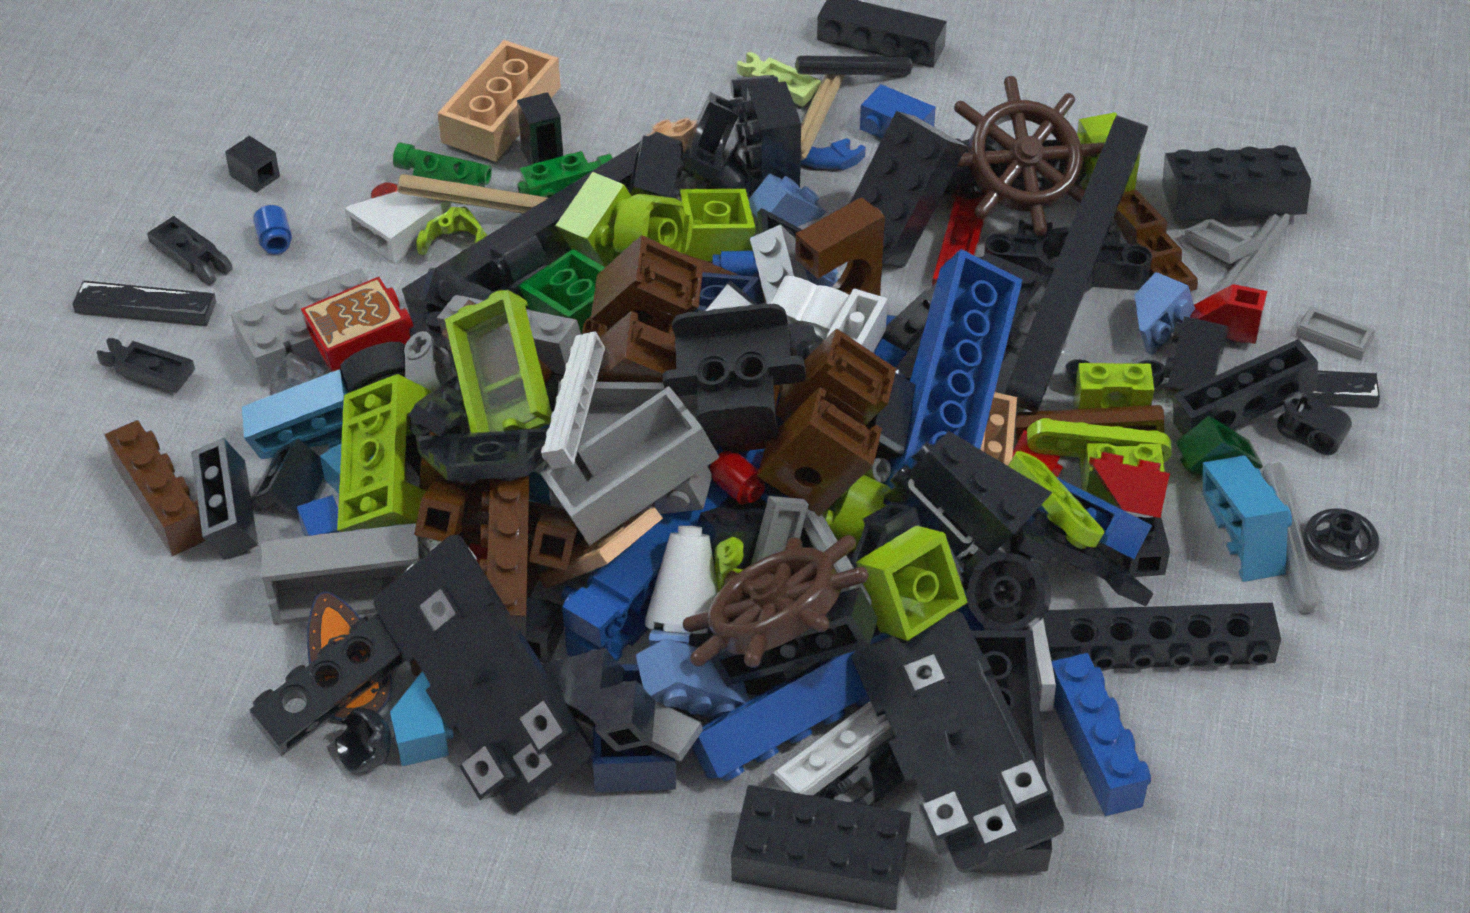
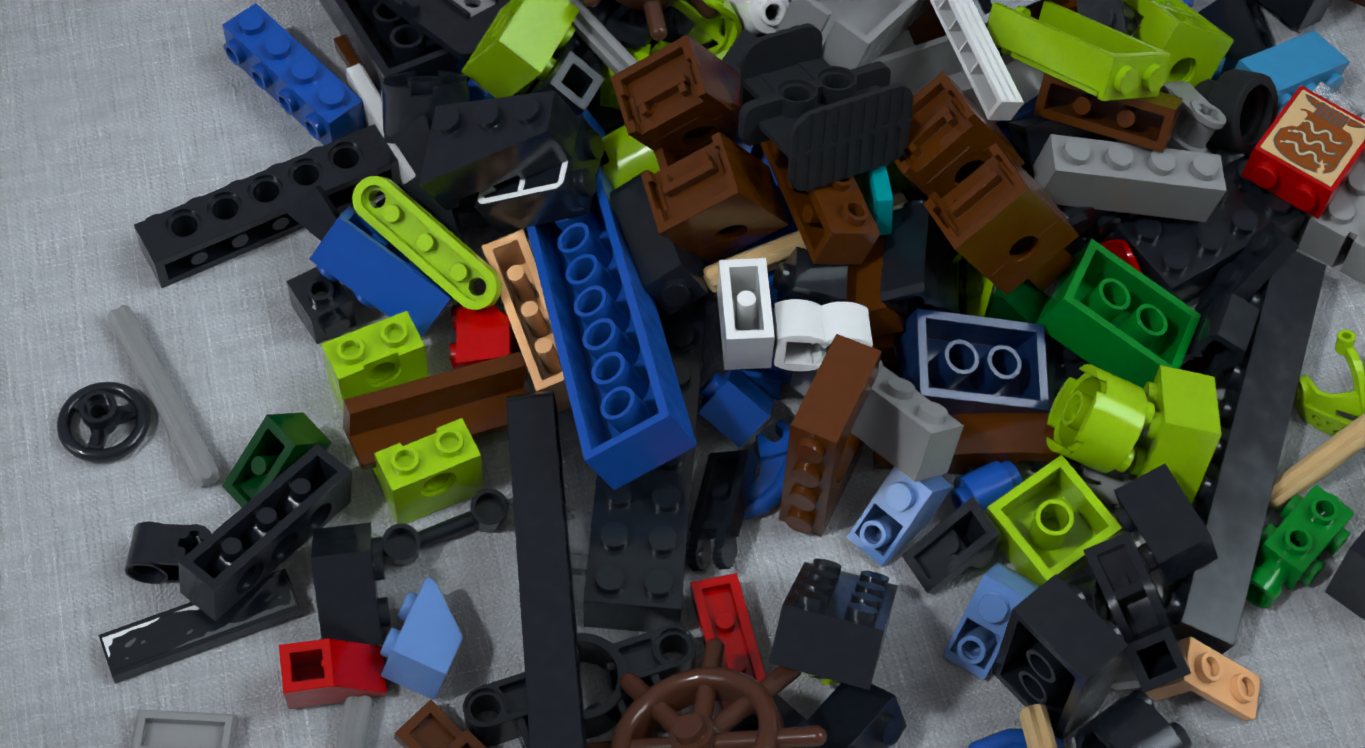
camera: 150 degrees right, 10 degrees up
(1071, 438) = (438, 353): lime plate -> none
(1132, 487) = (355, 302): red slope -> none
(1250, 514) = (217, 377): dark azure wedge -> none

